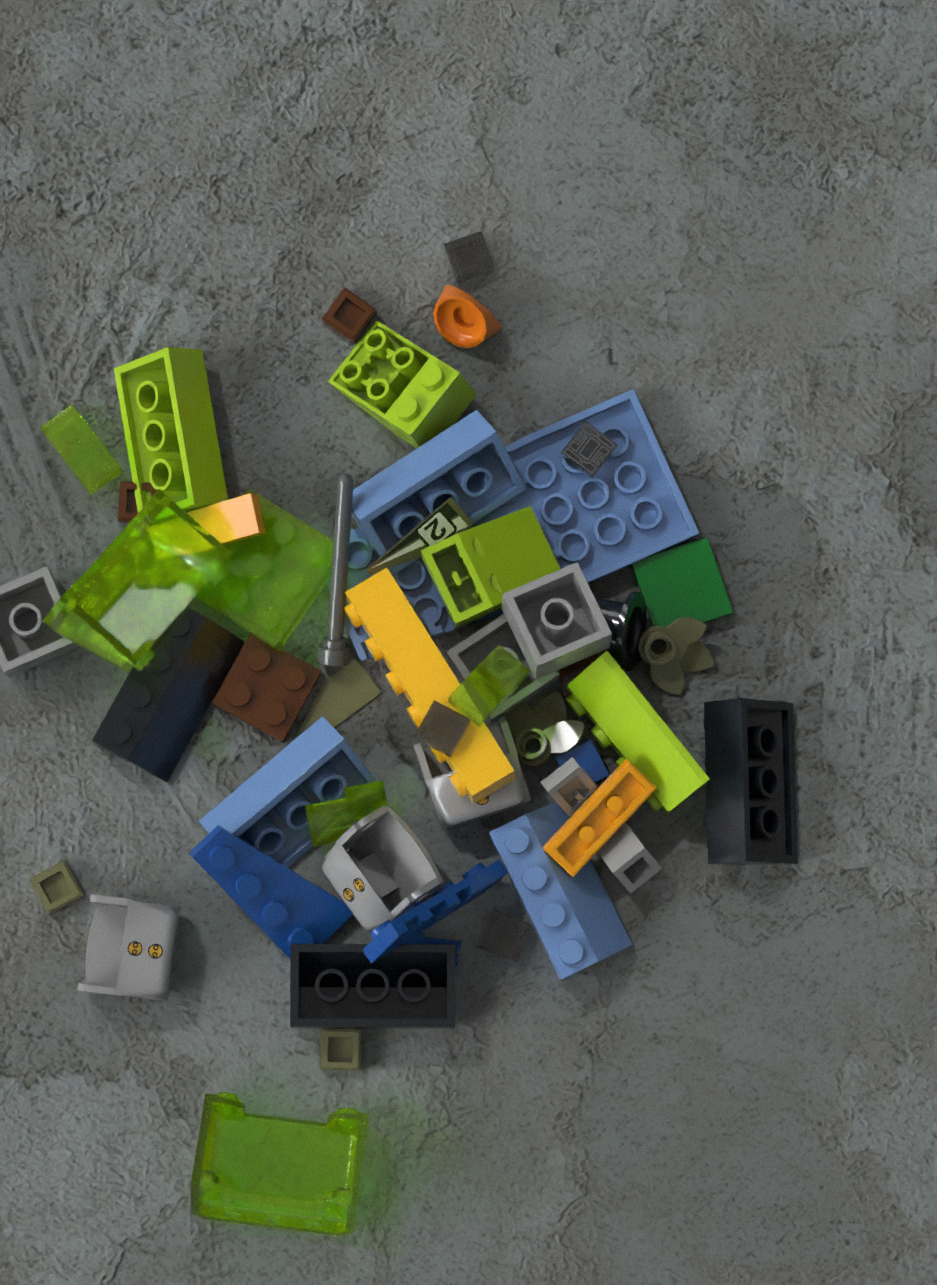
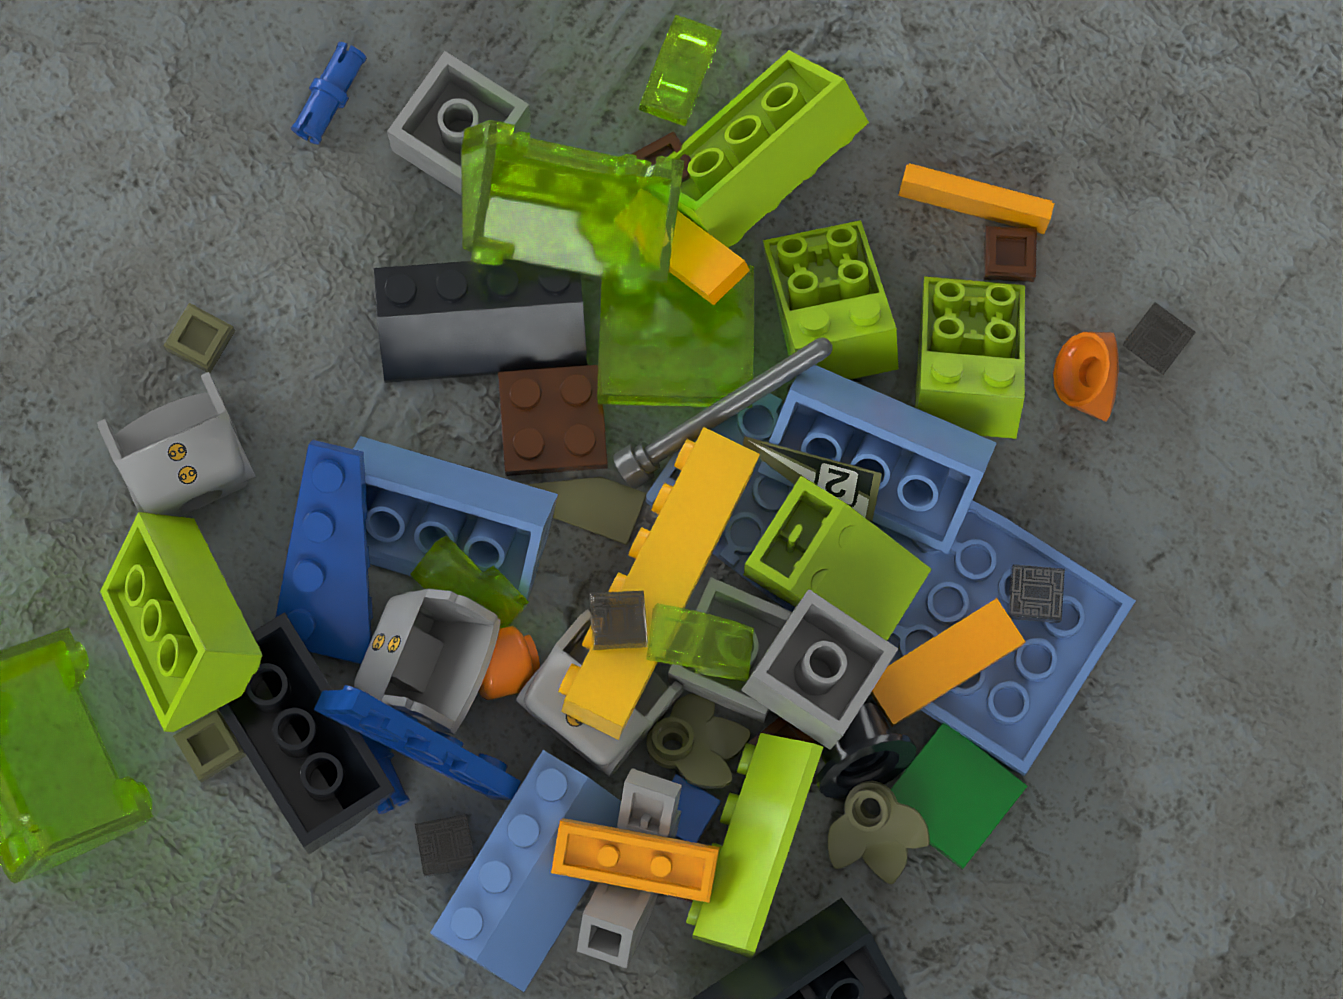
camera: 60 degrees right, 5 degrees down
(251, 1016) = (179, 620): none -> lime slope
(299, 313) = (976, 198): none -> light orange tile
(305, 451) = (833, 291): none -> lime slope
(418, 815) = (511, 664): none -> orange head
(597, 533) = (946, 662): none -> light orange tile

